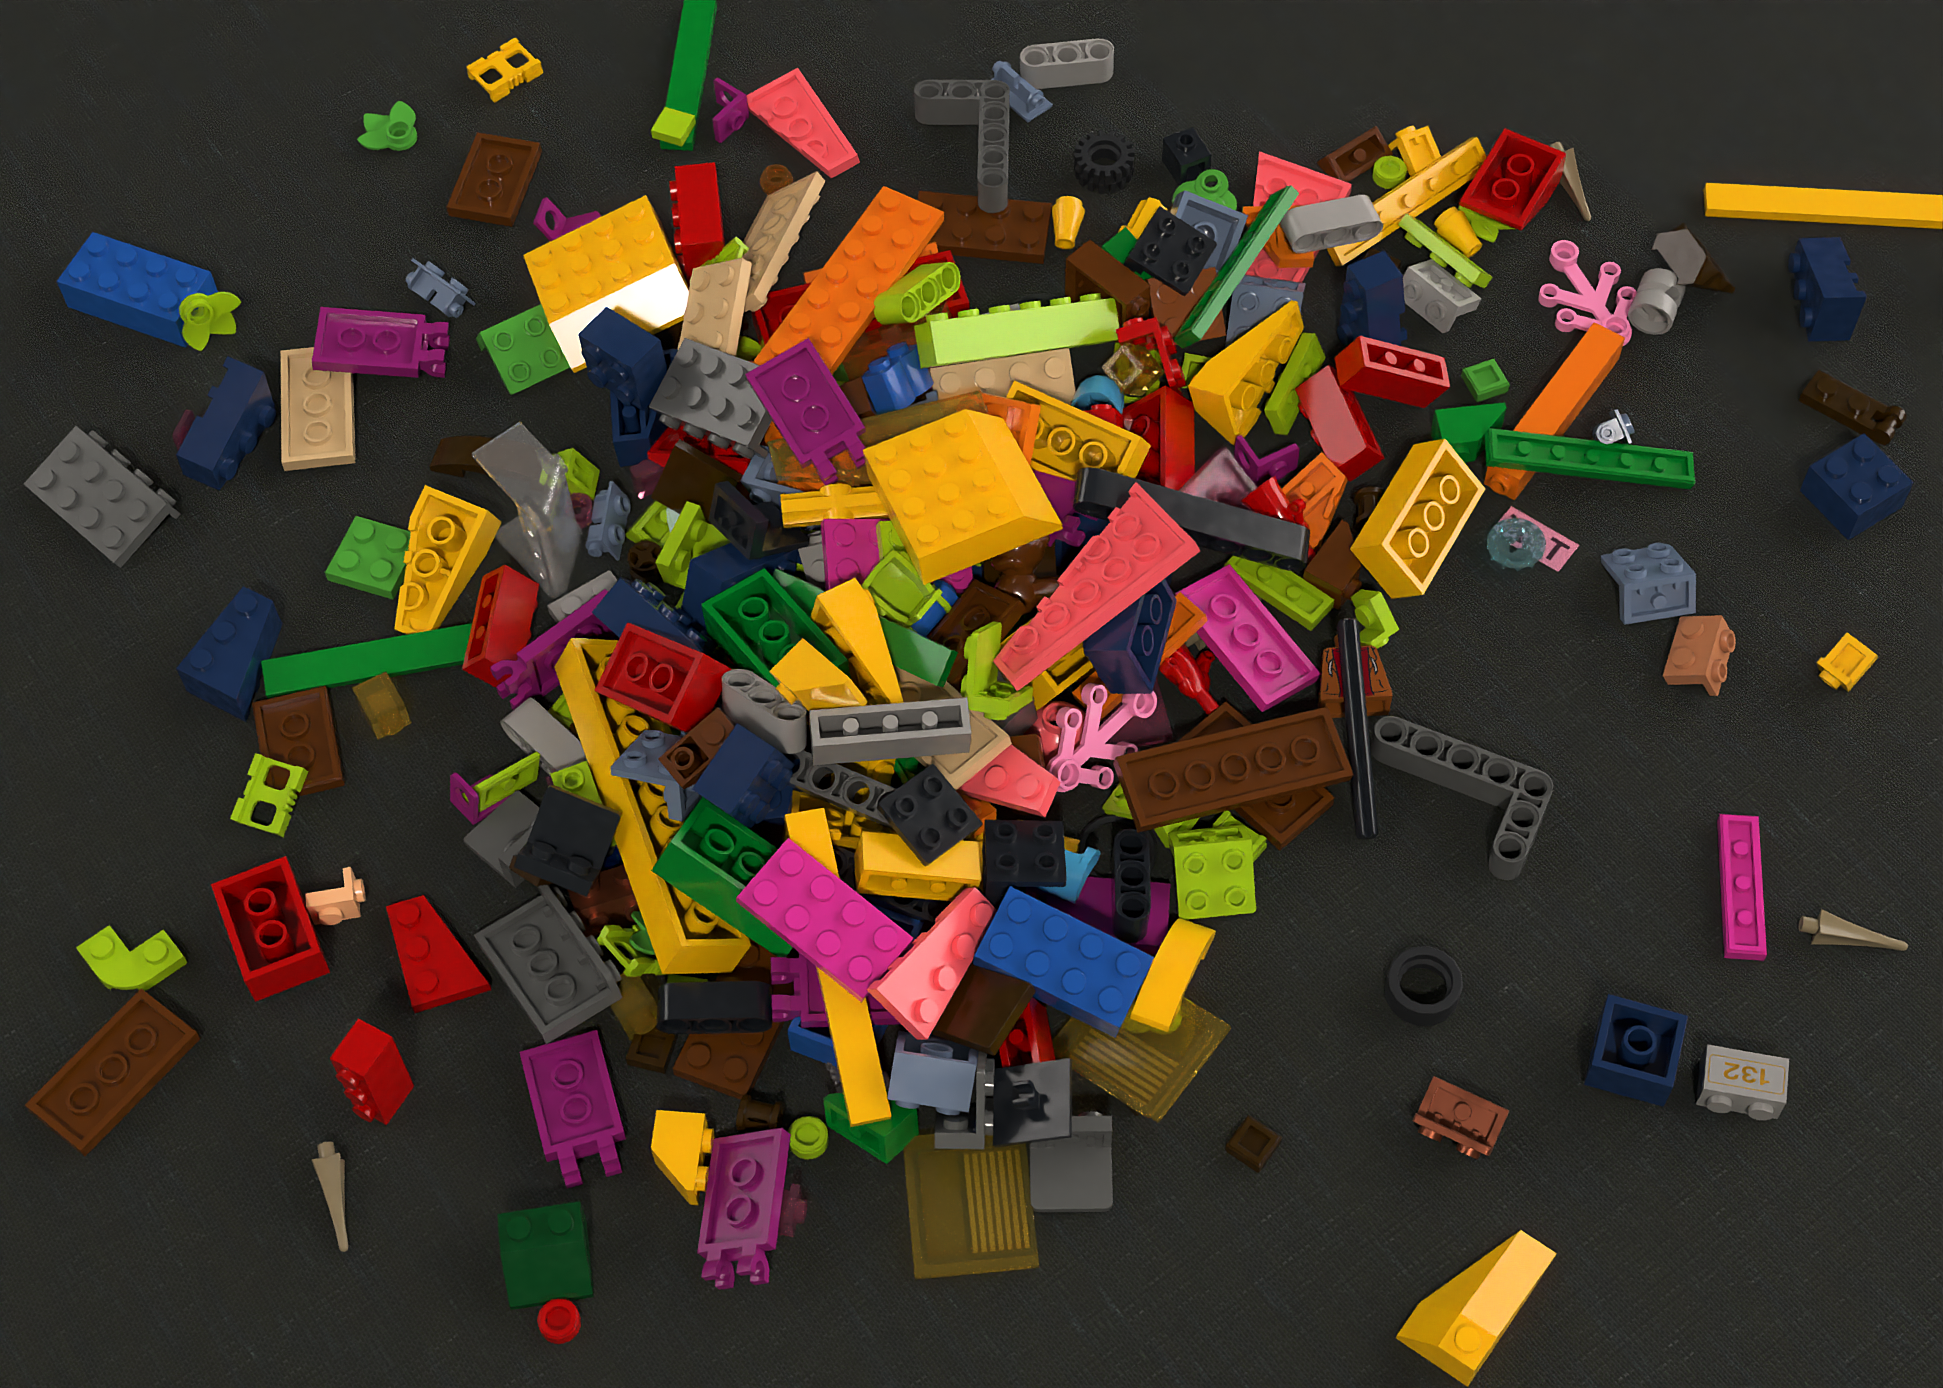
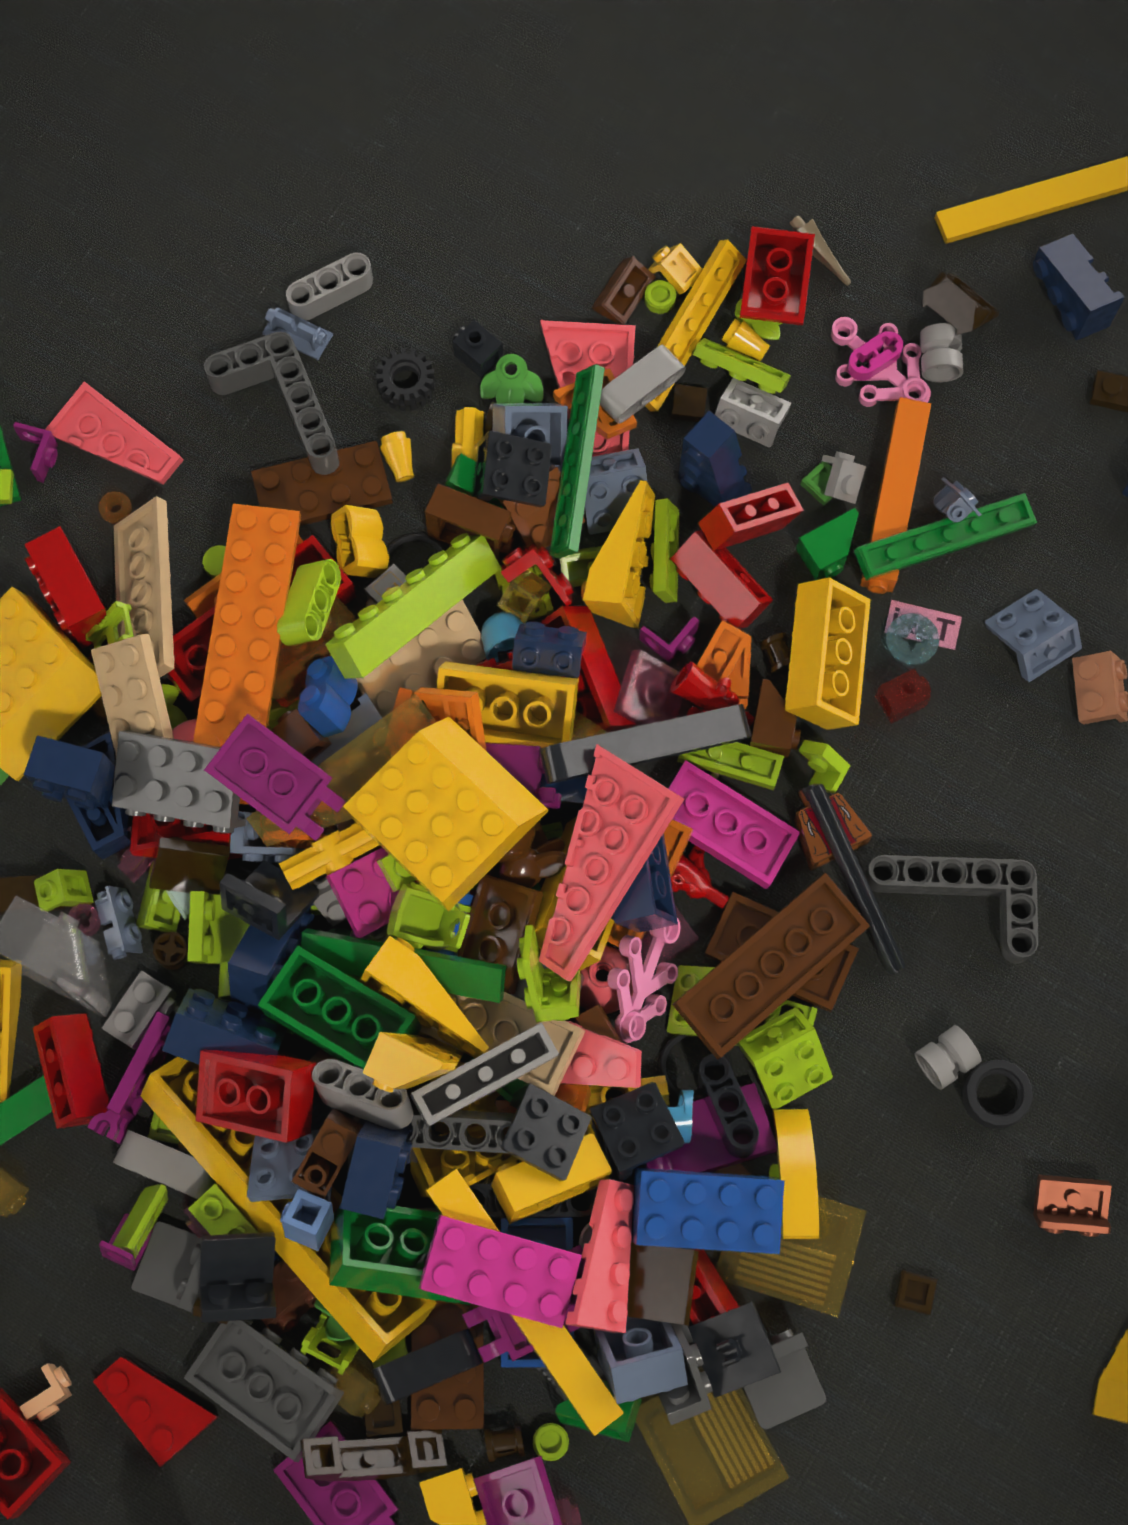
camera: 25 degrees left, 15 degrees up
(618, 1074) = (373, 1458): none -> dark brown slope
(658, 803) = (307, 1219): none -> medium blue brick
(994, 275) = (359, 541): none -> yellow brick
(1131, 411) = (548, 650): none -> dark blue bracket
(1385, 929) = (947, 1057): none -> light grey wheel
(1484, 588) = (903, 695): none -> clear red brick
(1506, 377) = (844, 477): none -> light grey bracket
(1586, 283) = (871, 350): none -> dark pink beam

